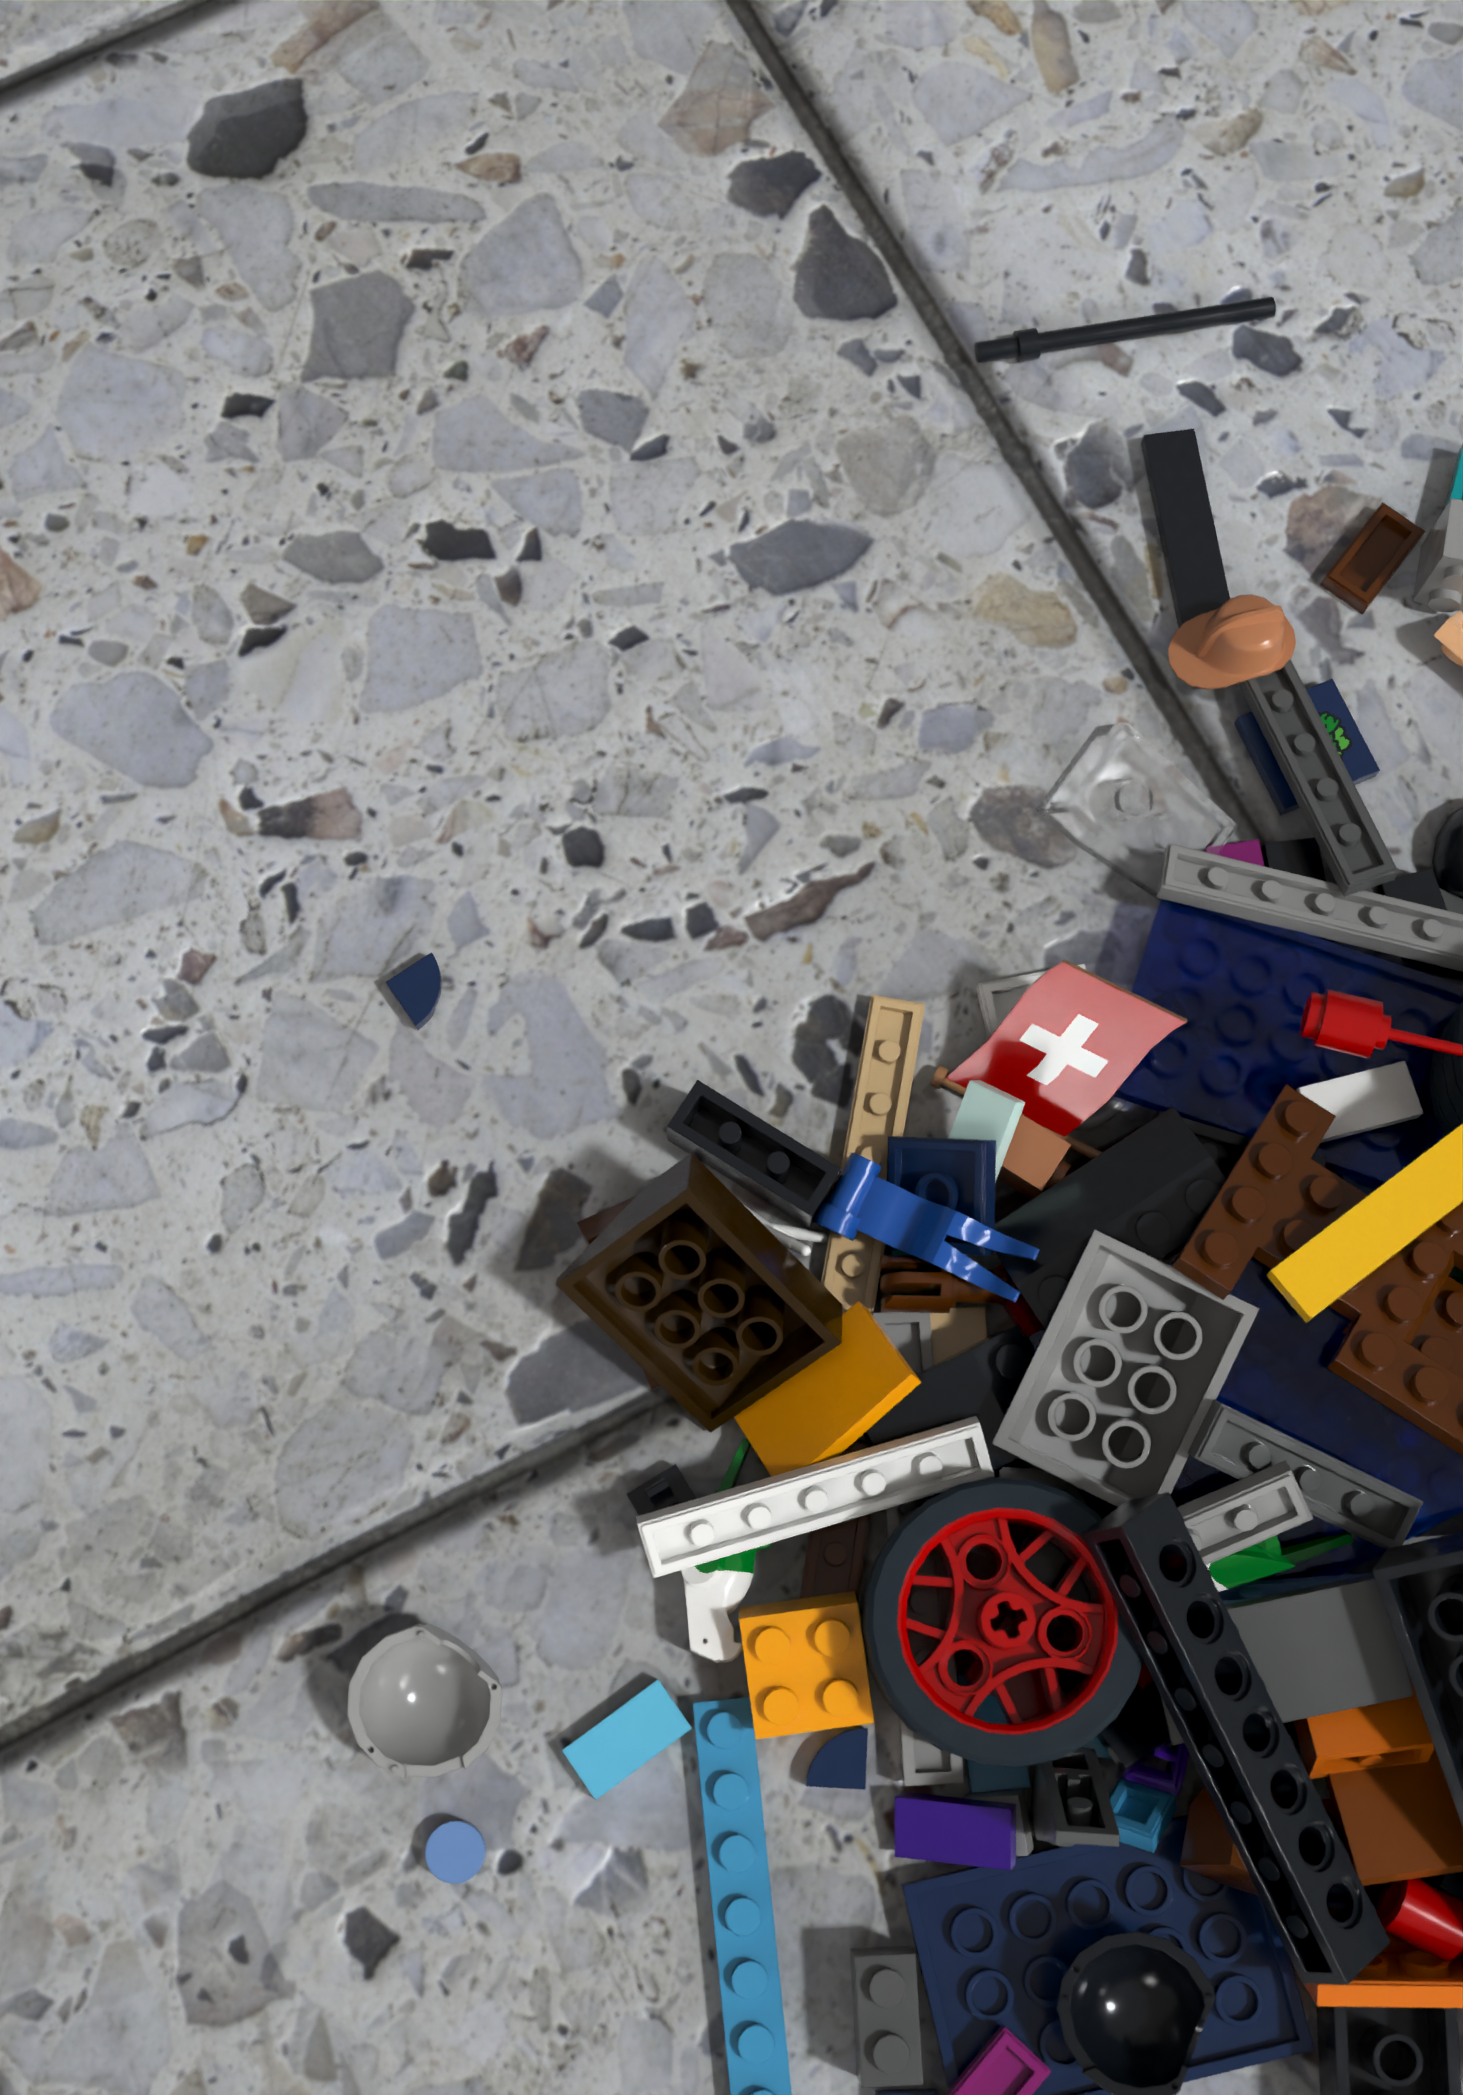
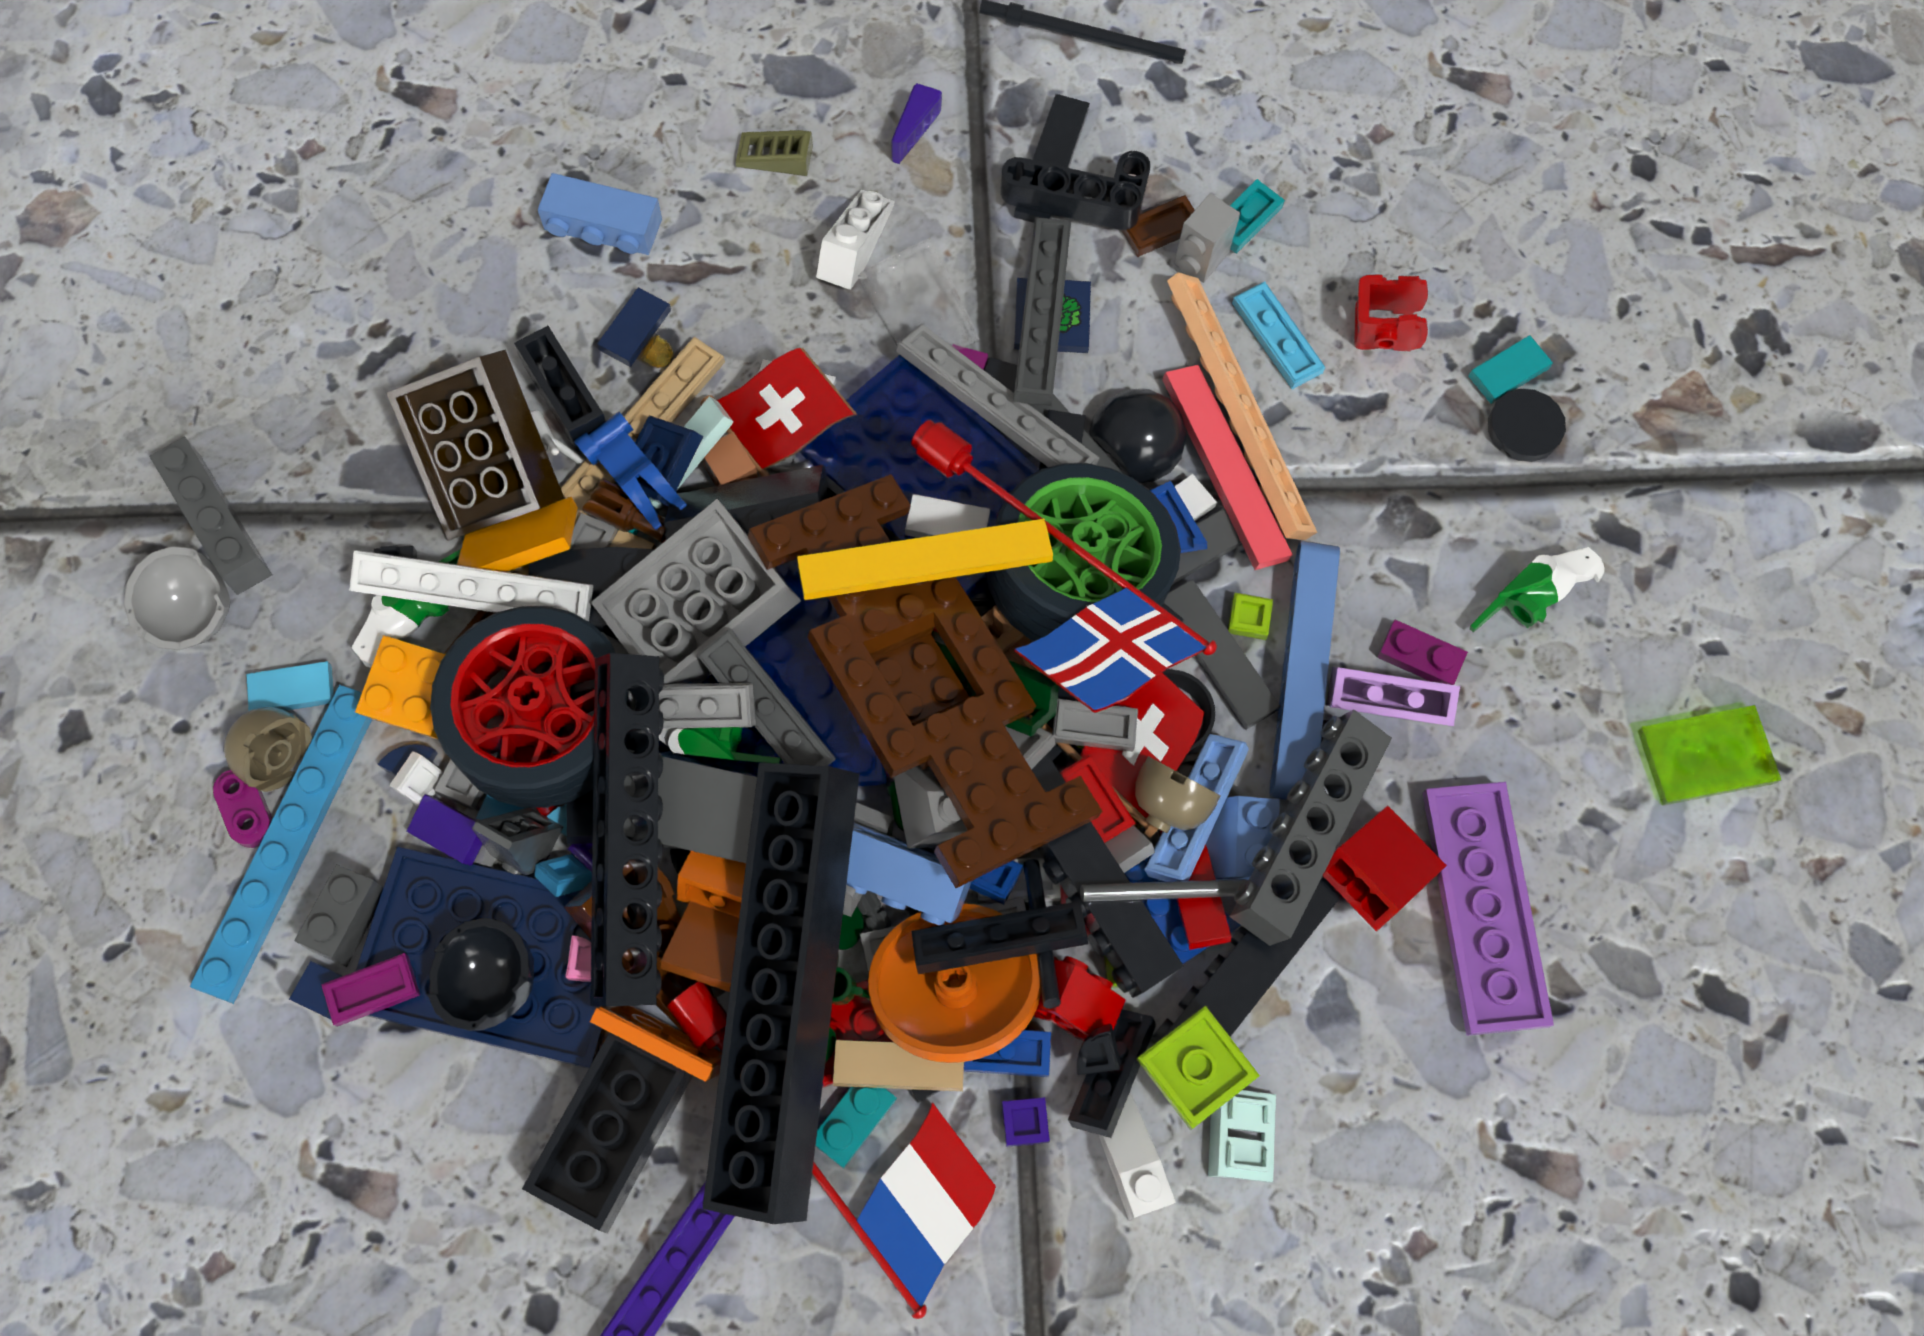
camera: 25 degrees right, 5 degrees down
(386, 1557) = (210, 515): none -> dark grey brick
(418, 989) = (427, 216): dark blue tile -> none
(455, 1851) = (151, 702): medium blue tile -> none
(651, 1841) = (266, 747): none -> dark tan cylinder
(654, 882) = (600, 214): none -> medium blue brick
(662, 1933) = (240, 806): none -> magenta plate
(783, 1017) = (634, 327): none -> dark blue tile
(835, 1039) = (658, 352): none -> clear yellow hinge
(840, 659) = (783, 163): none -> olive slope
(874, 1781) = (416, 778): none -> white tile
(985, 547) = (918, 115): none -> dark purple slope
(1002, 760) = (853, 238): none -> white slope
(1189, 579) = (1028, 181): none -> black beam
(1232, 643) = (1037, 230): nougat piece -> none
(1235, 1916) = (579, 960): none -> bright pink tile

